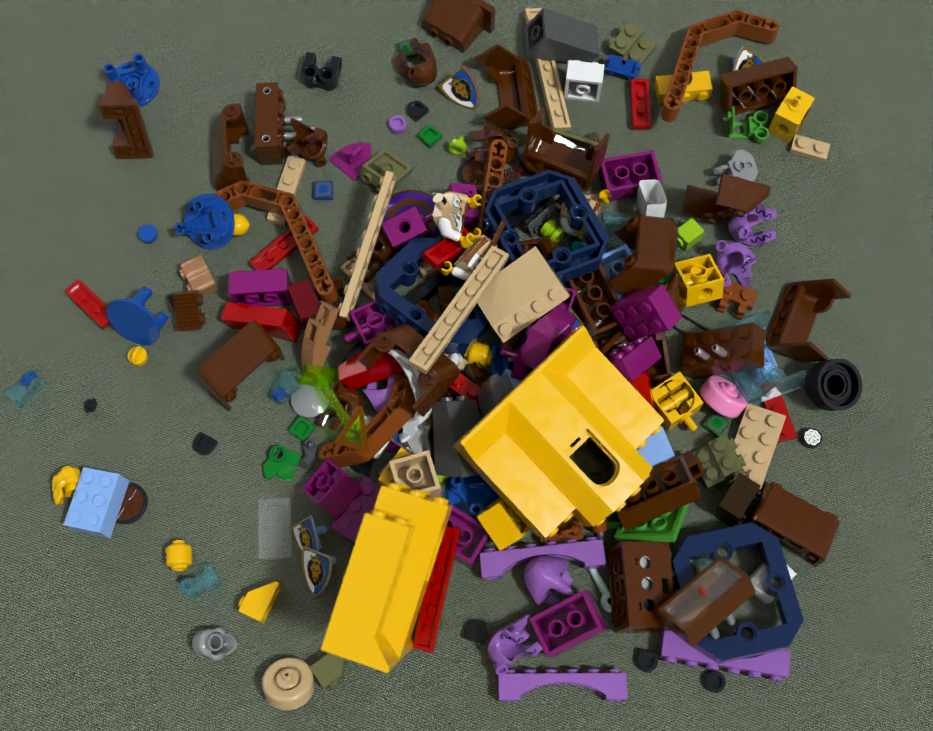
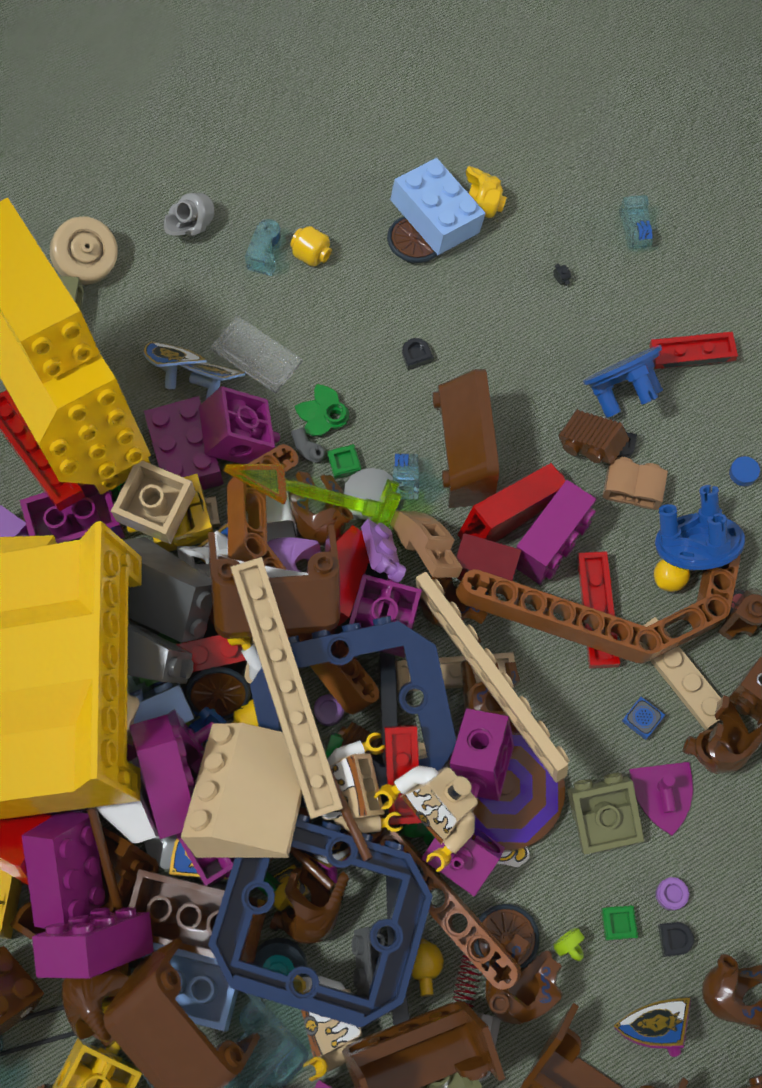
camera: 130 degrees right, 0 degrees up
(137, 356) = (584, 357): yellow tile -> none
(259, 602) = (191, 283): yellow slope -> none
(343, 350) = (382, 550): none -> medium lavender plate
(552, 231) = (335, 959): lime wheel -> none

